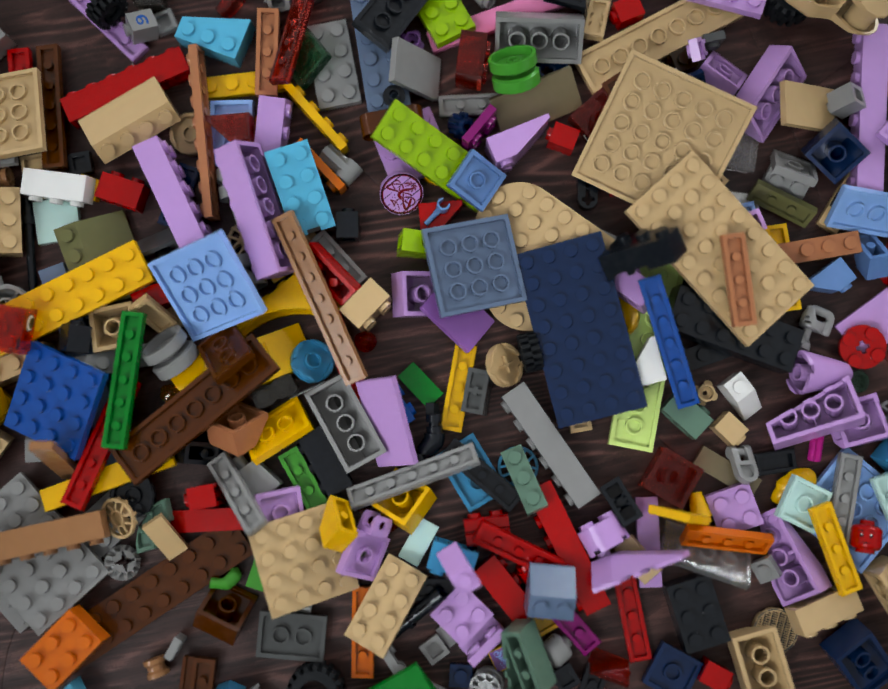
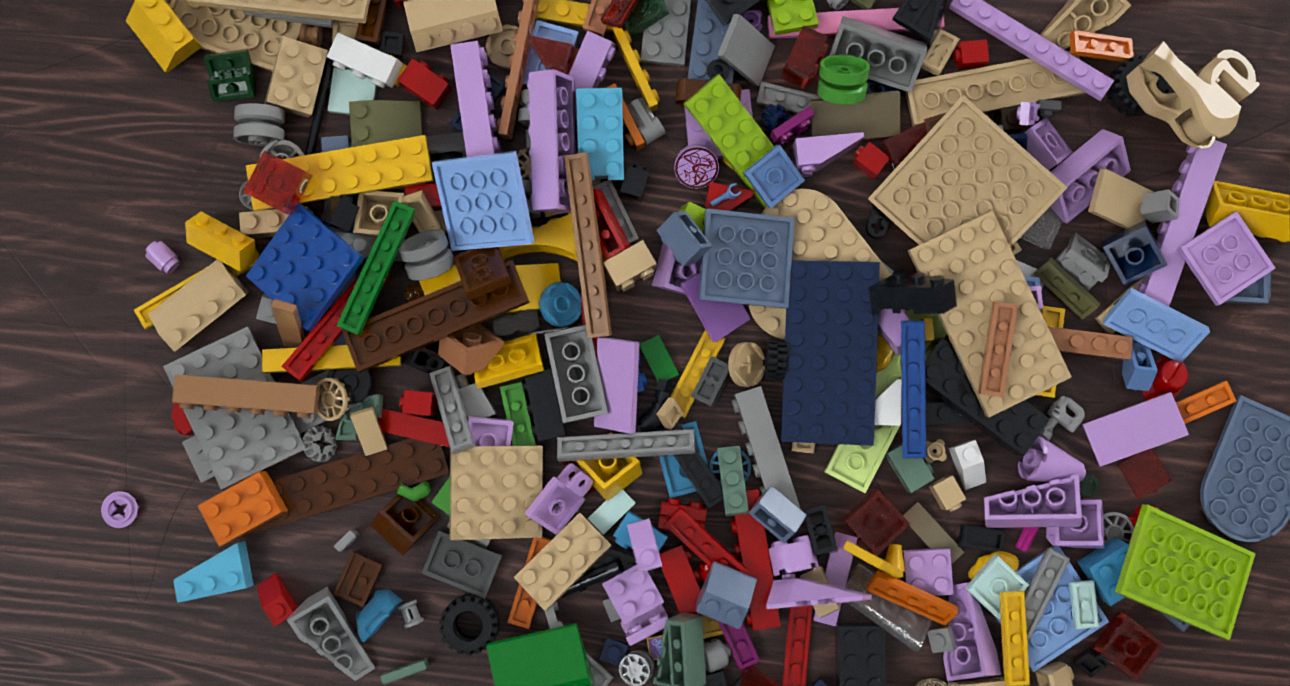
camera: 10 degrees right, 0 degrees up
(156, 667) = (322, 554): medium nougat wheel -> none
(337, 524) = (540, 469): yellow slope -> none
(365, 341) = (618, 301): clear red plate -> none
(408, 264) = (684, 238): none -> sand blue brick
(434, 648) = (596, 618): light grey plate -> none
(445, 433) = (669, 413): none -> tan tile
(576, 499) = (777, 514): none -> brick
(666, 280) = (929, 331): none -> yellow tile
(746, 470) = (950, 537): light grey plate -> none
(833, 277) = (1094, 376): medium blue slope -> none
(866, 537) = (1048, 636): red head -> none
(869, 335) = (1110, 462): red plate -> none

